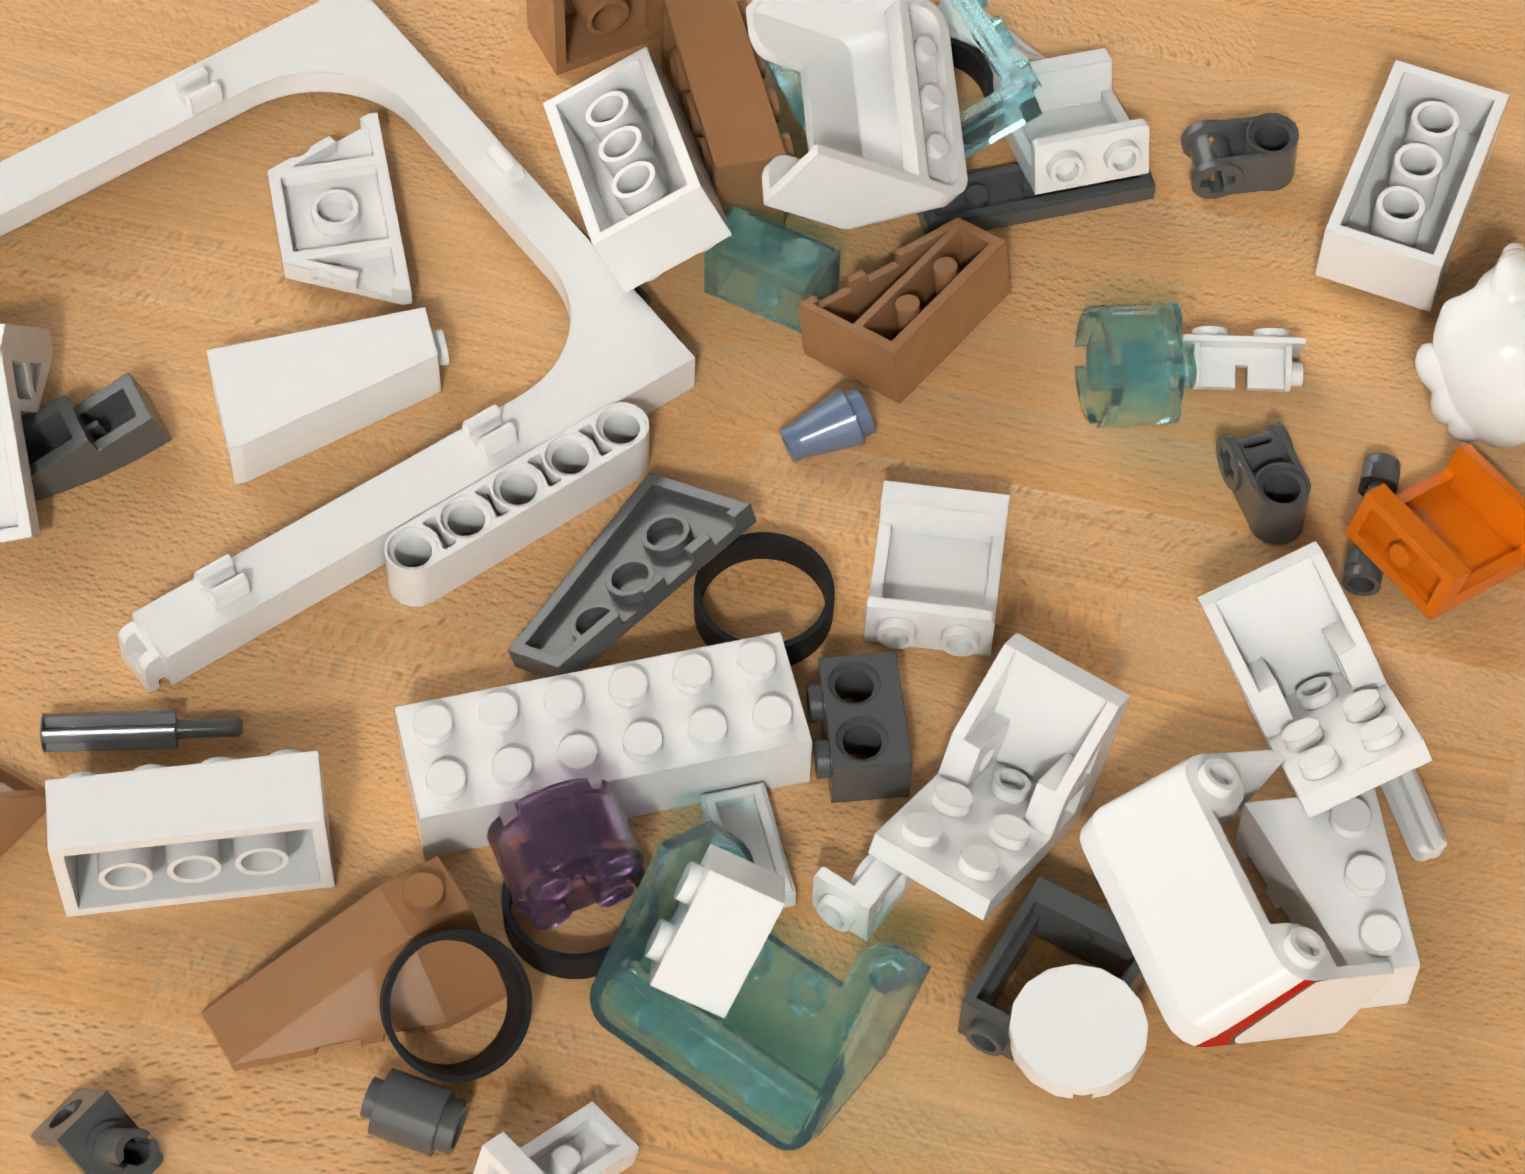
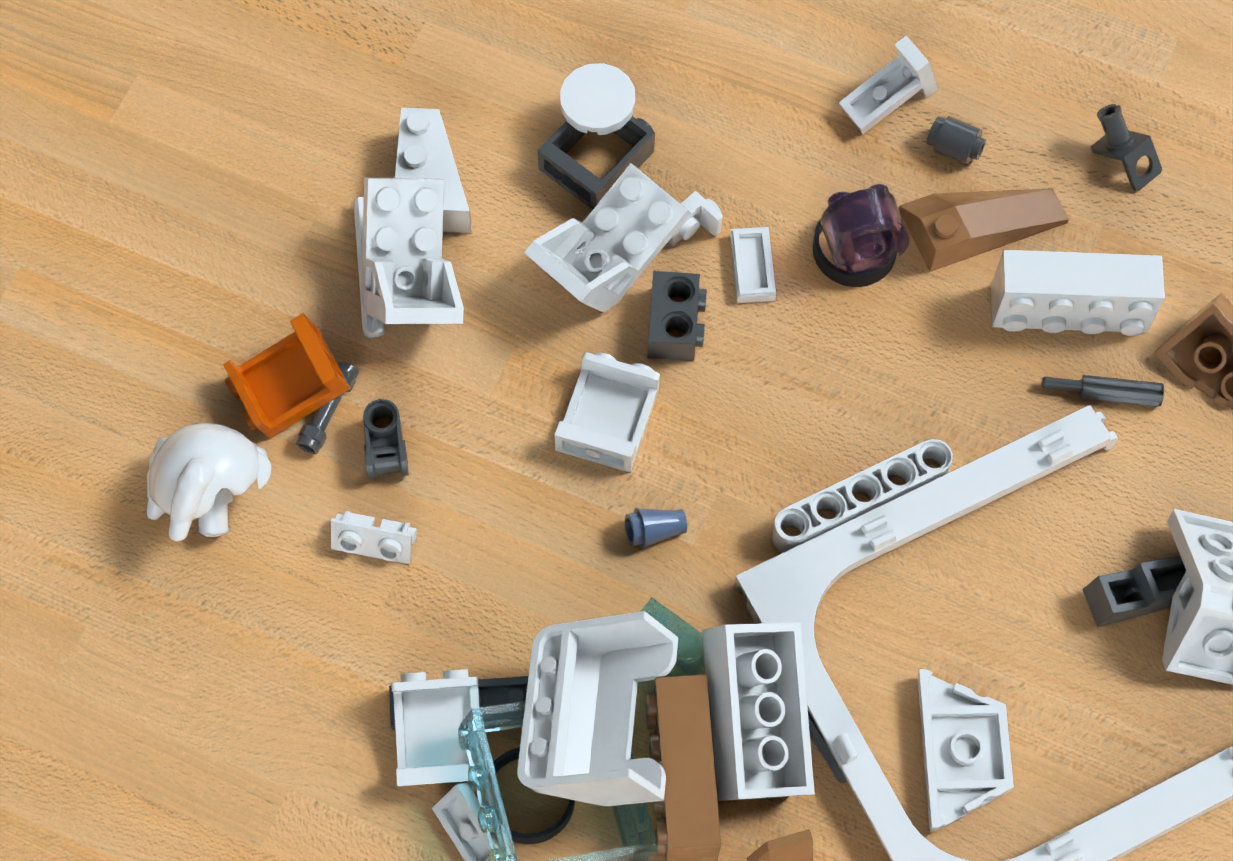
camera: 170 degrees left, 10 degrees up
(320, 385) = (986, 605): white slope -> none
(516, 1018) = (930, 161): black tyre -> none
(631, 568) = (792, 442): dark grey wing -> none
(646, 725) = (830, 324): white brick -> none
(715, 930) = (784, 178): white brick -> none
(775, 547) = (718, 377): black tyre -> none
(793, 1034) = (765, 155): clear light blue windscreen -> none
(910, 313) = (593, 584): medium nougat wedge -> none
(1133, 364) = (450, 520): clear light blue brick -> none
(1197, 921) = (527, 153): white windscreen -> none
(1244, 155) = (327, 695): dark grey piece -> none
(1411, 185) = (215, 638): white brick -> none

